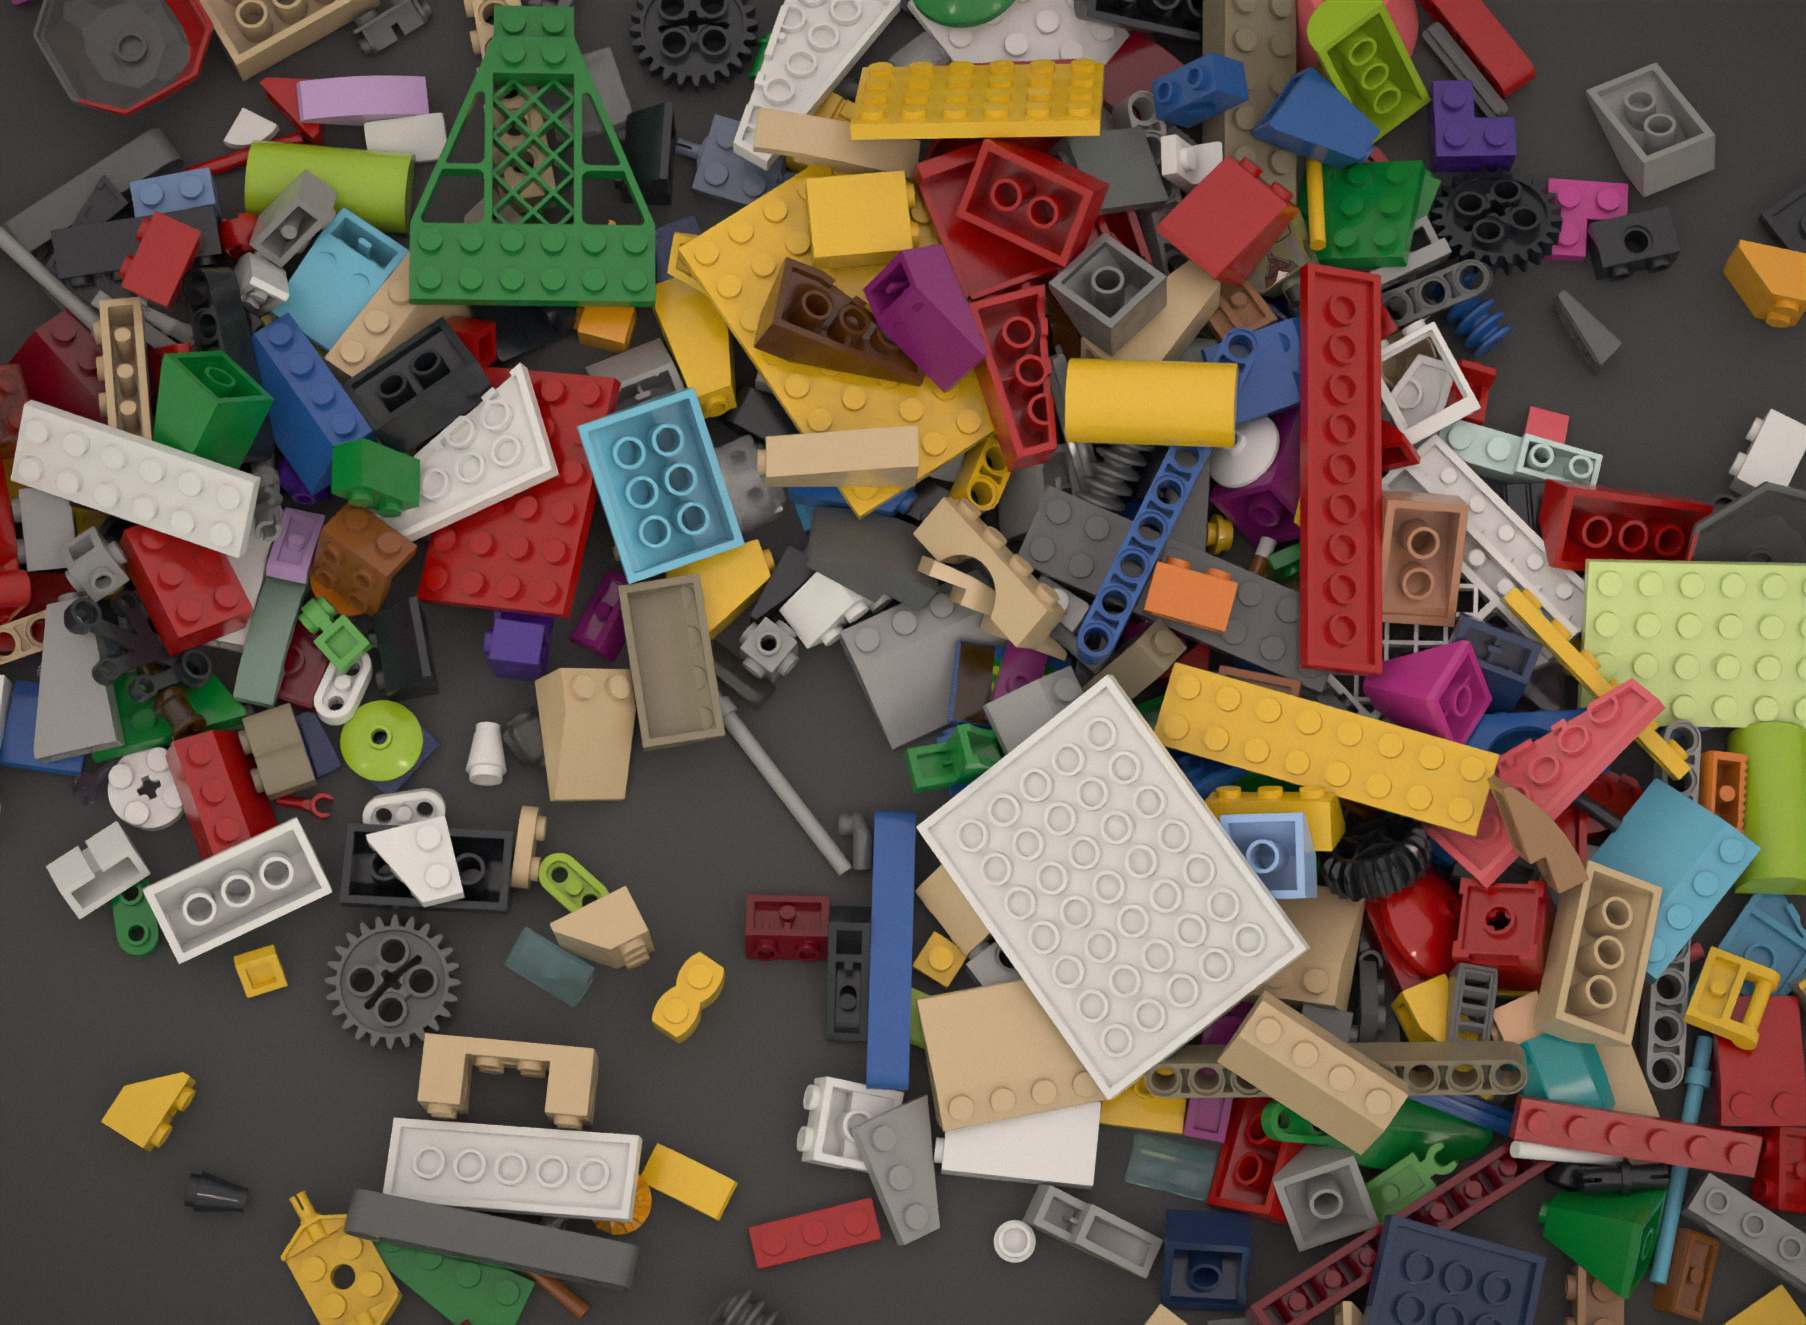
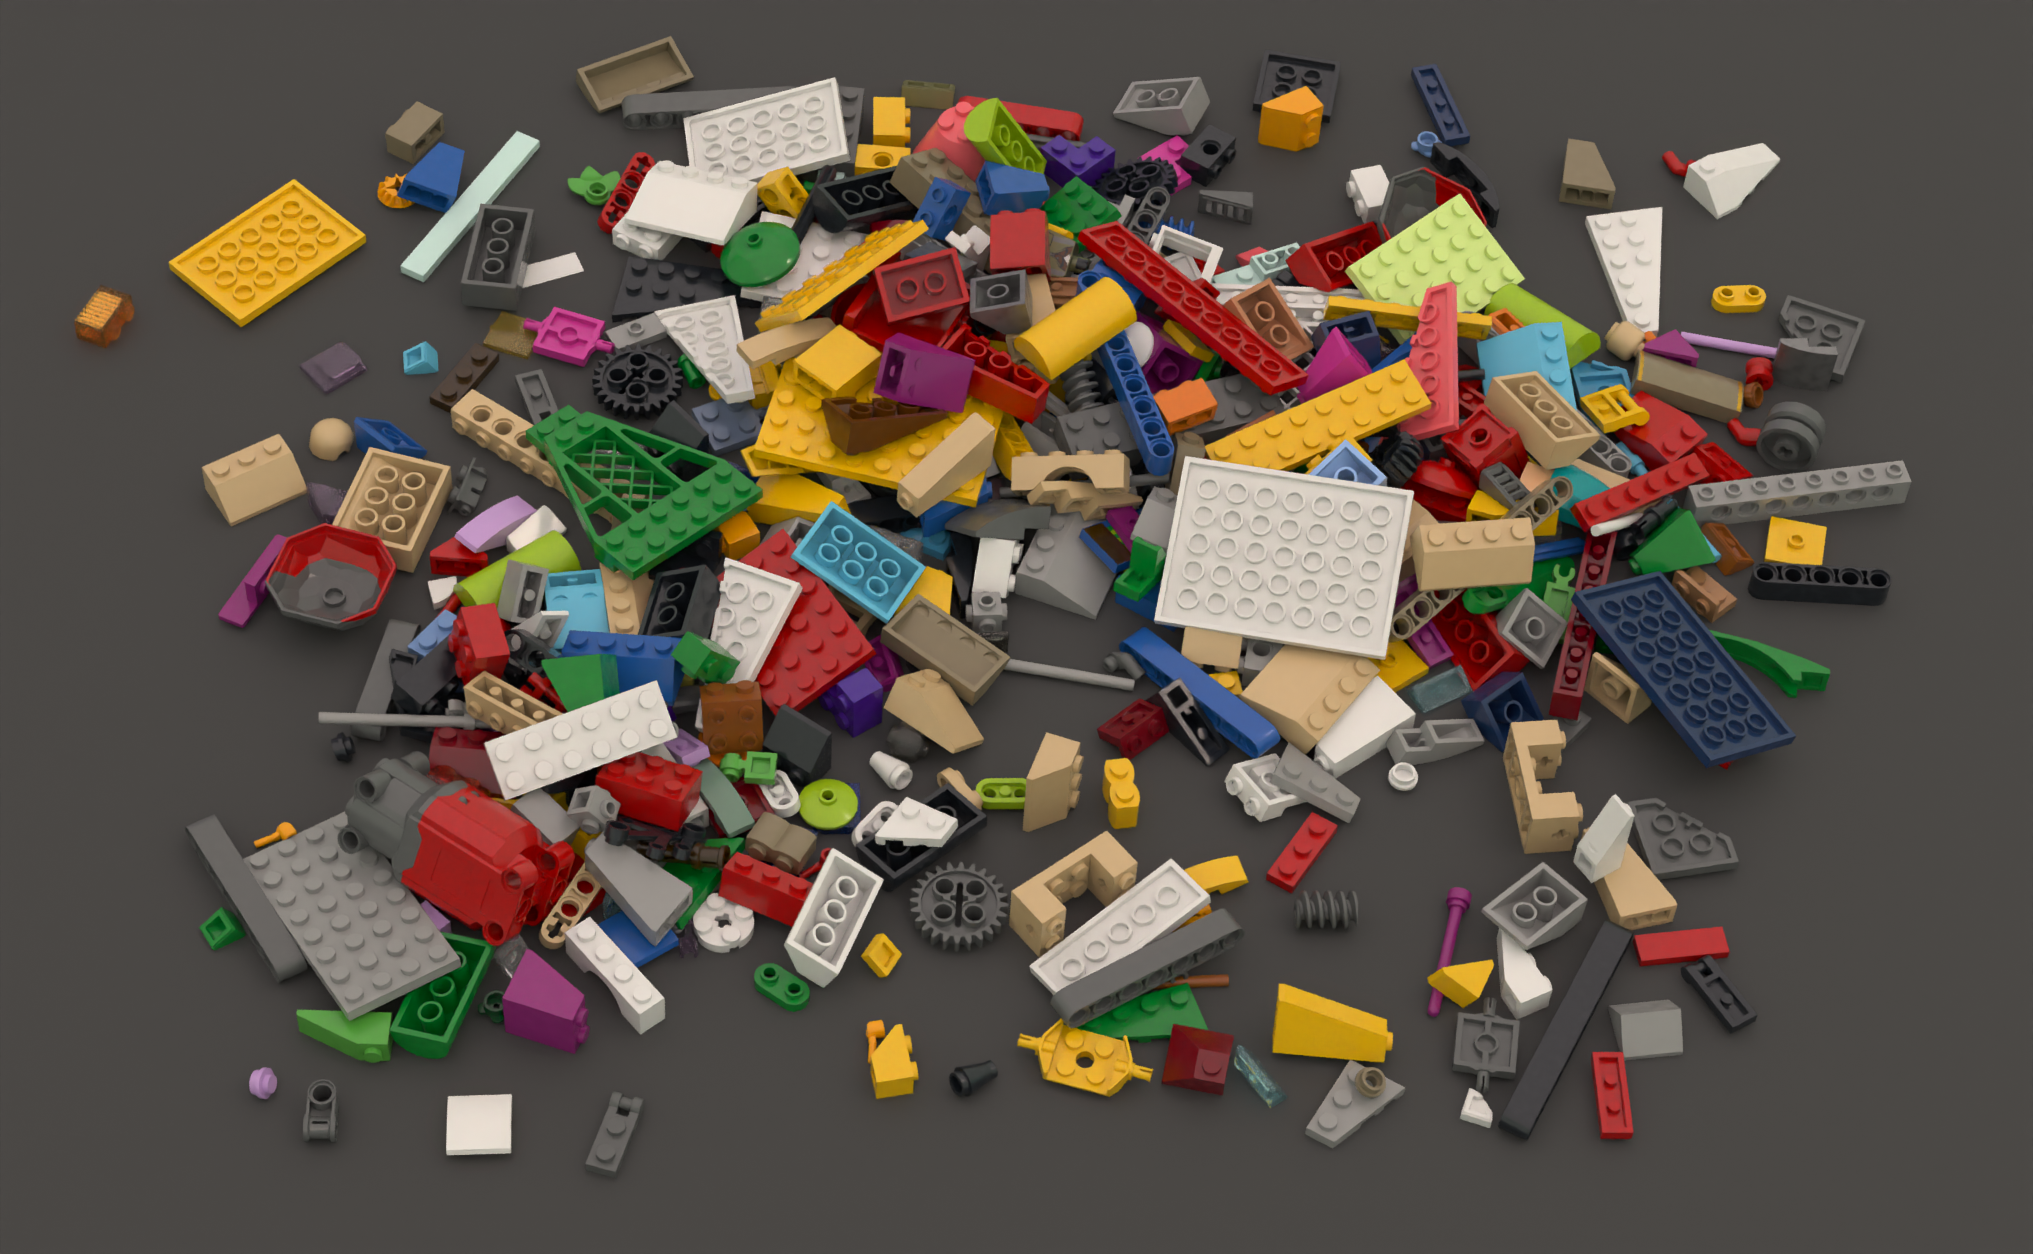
camera: 45 degrees left, 25 degrees down
(98, 872) = (742, 972): white piece -> none
(172, 1050) = (874, 1031): none -> light orange hand
(550, 967) = (1031, 837): clear light blue slope -> none
(1538, 838) = (1459, 376): medium nougat slope -> none

